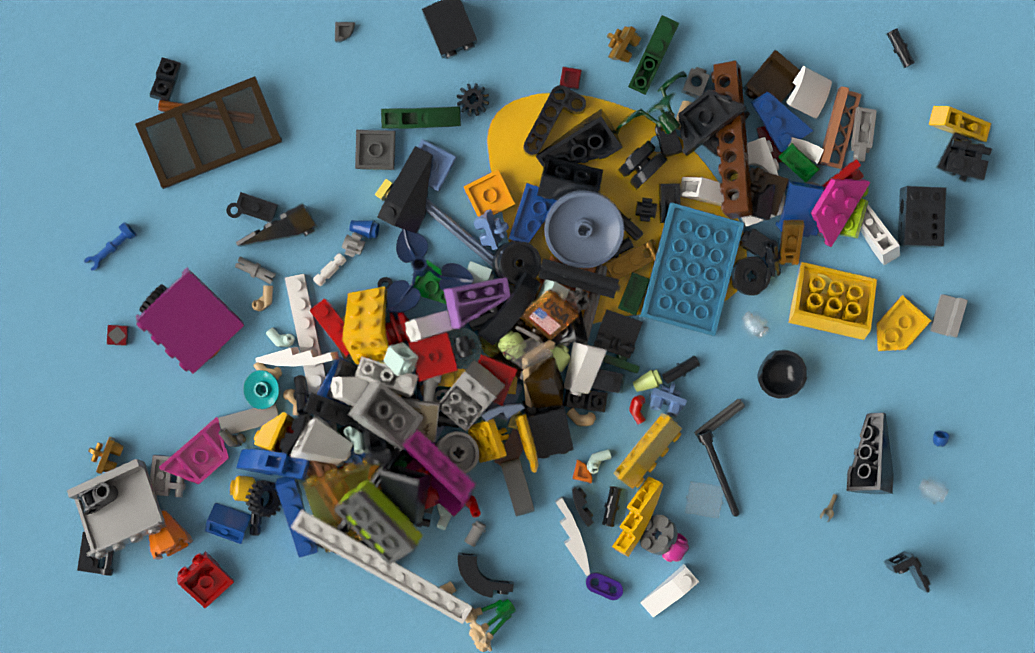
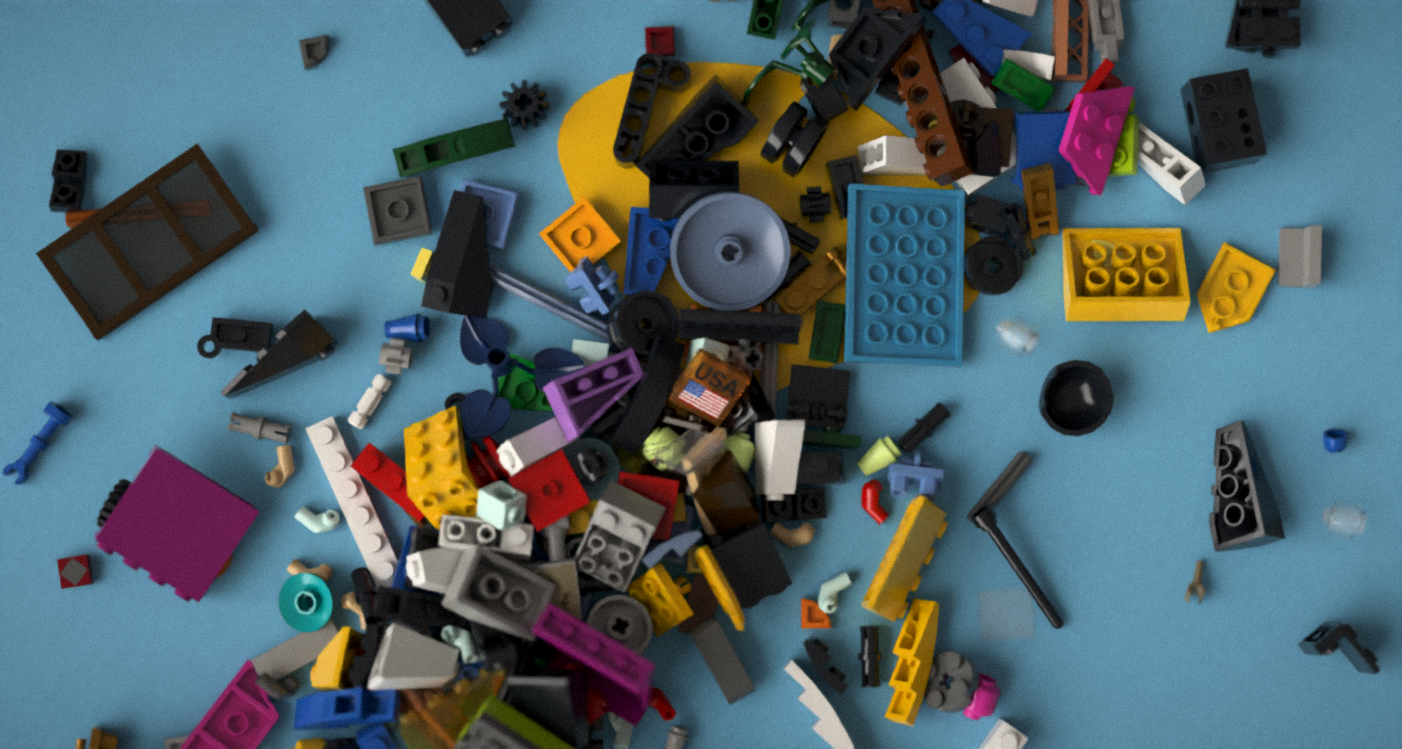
camera: 15 degrees left, 5 degrees down
(292, 357) = (341, 542): white slope -> none

